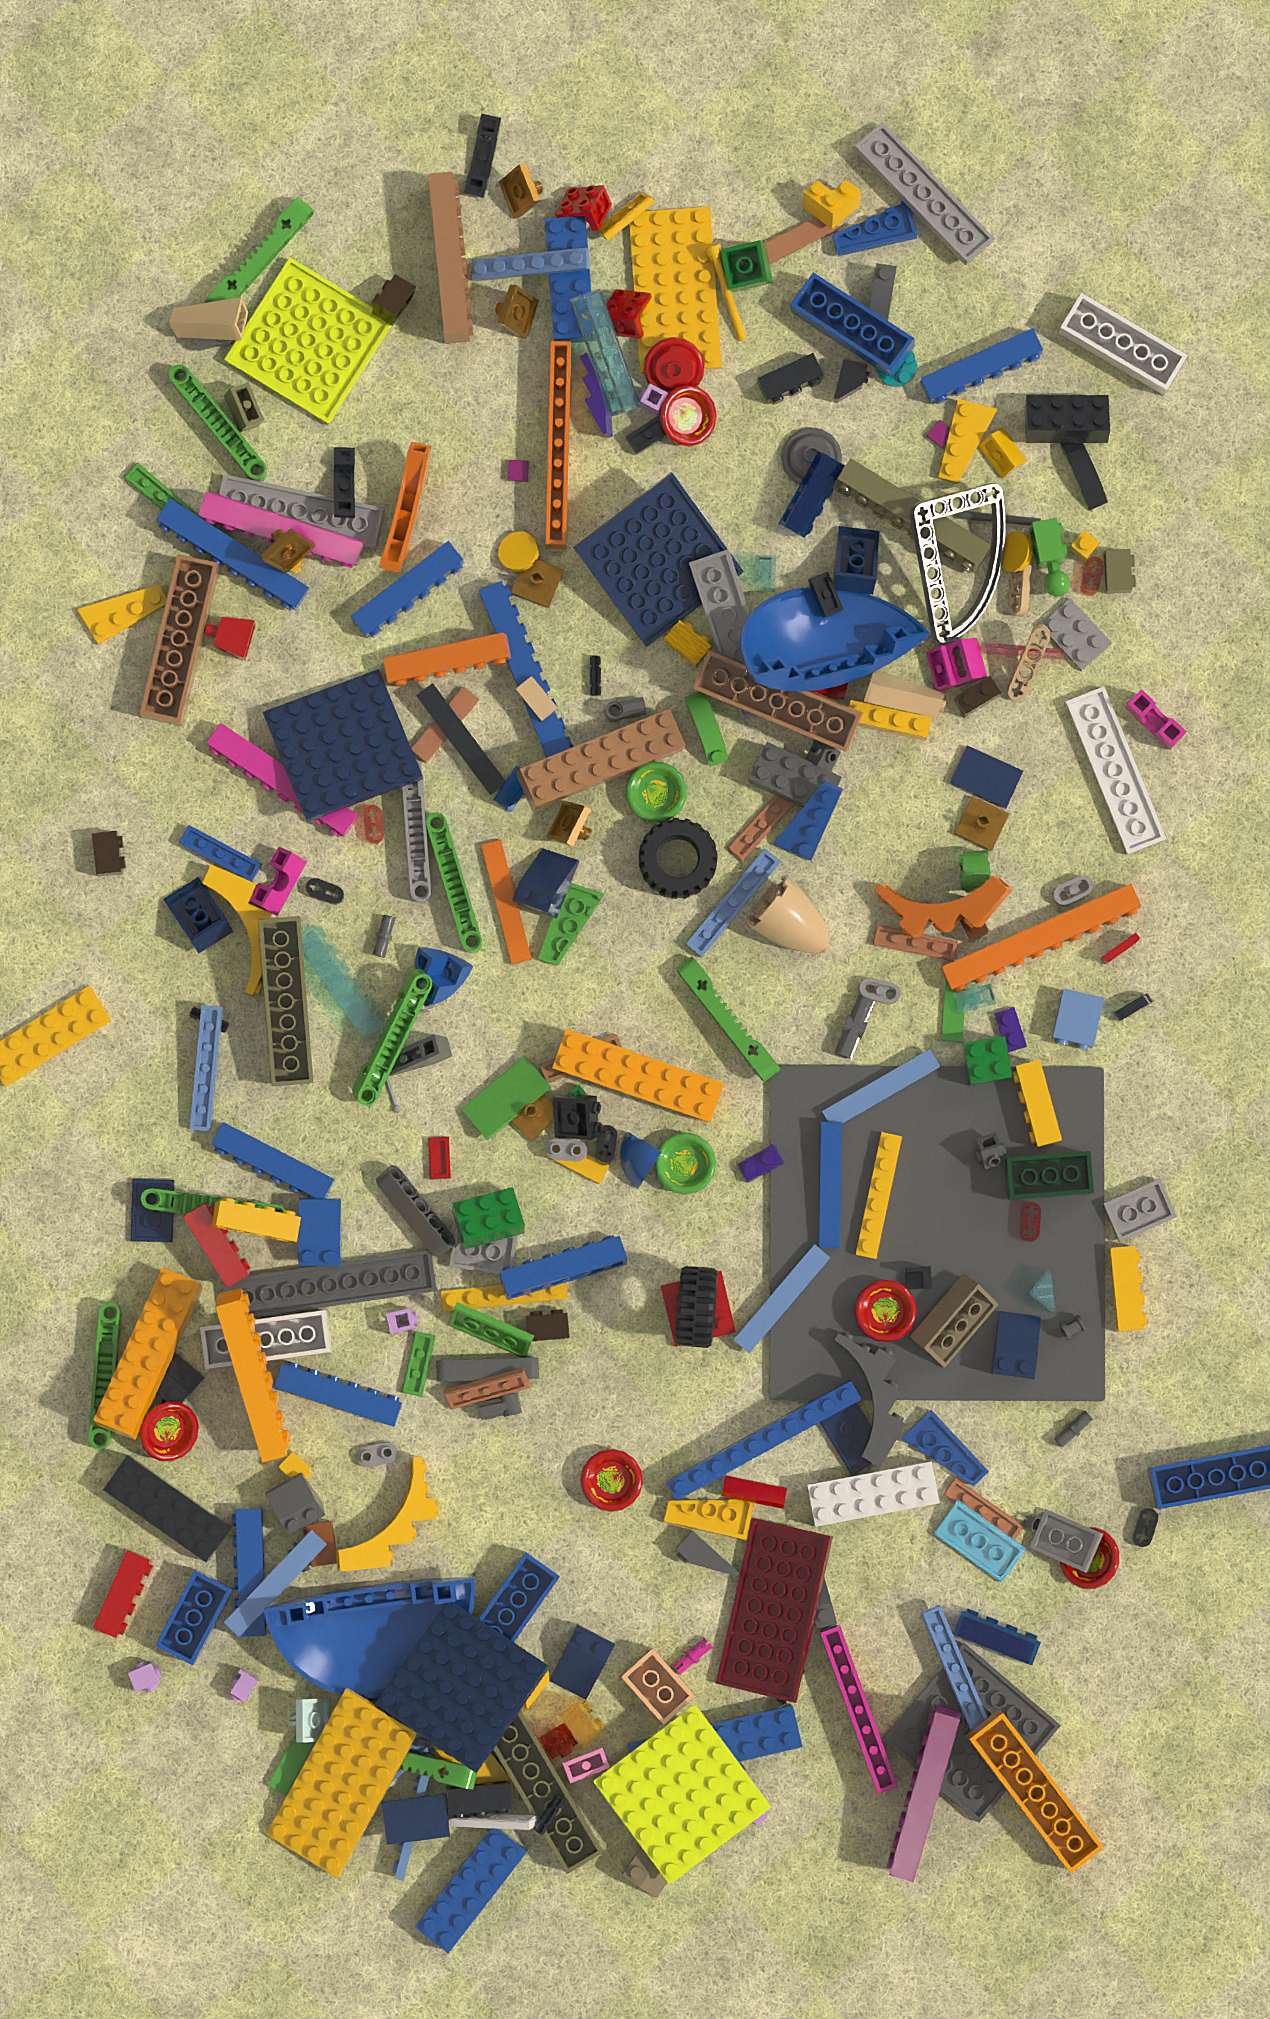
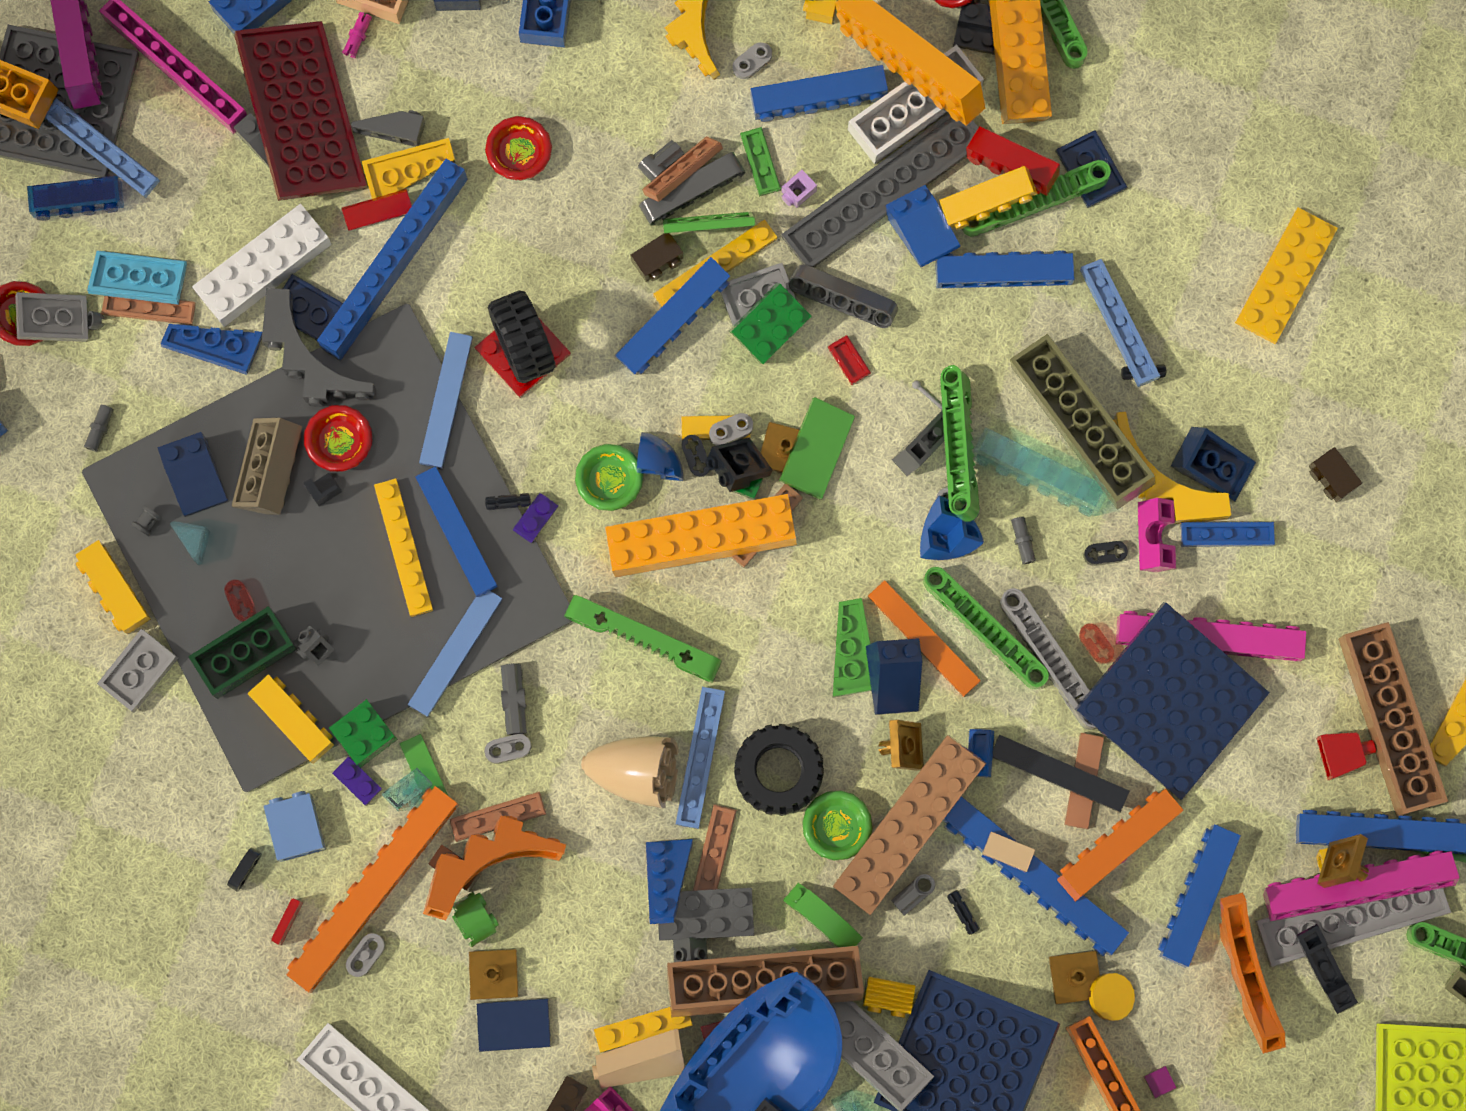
camera: 150 degrees right, 5 degrees down
(776, 1187) = (507, 501): none -> black axle

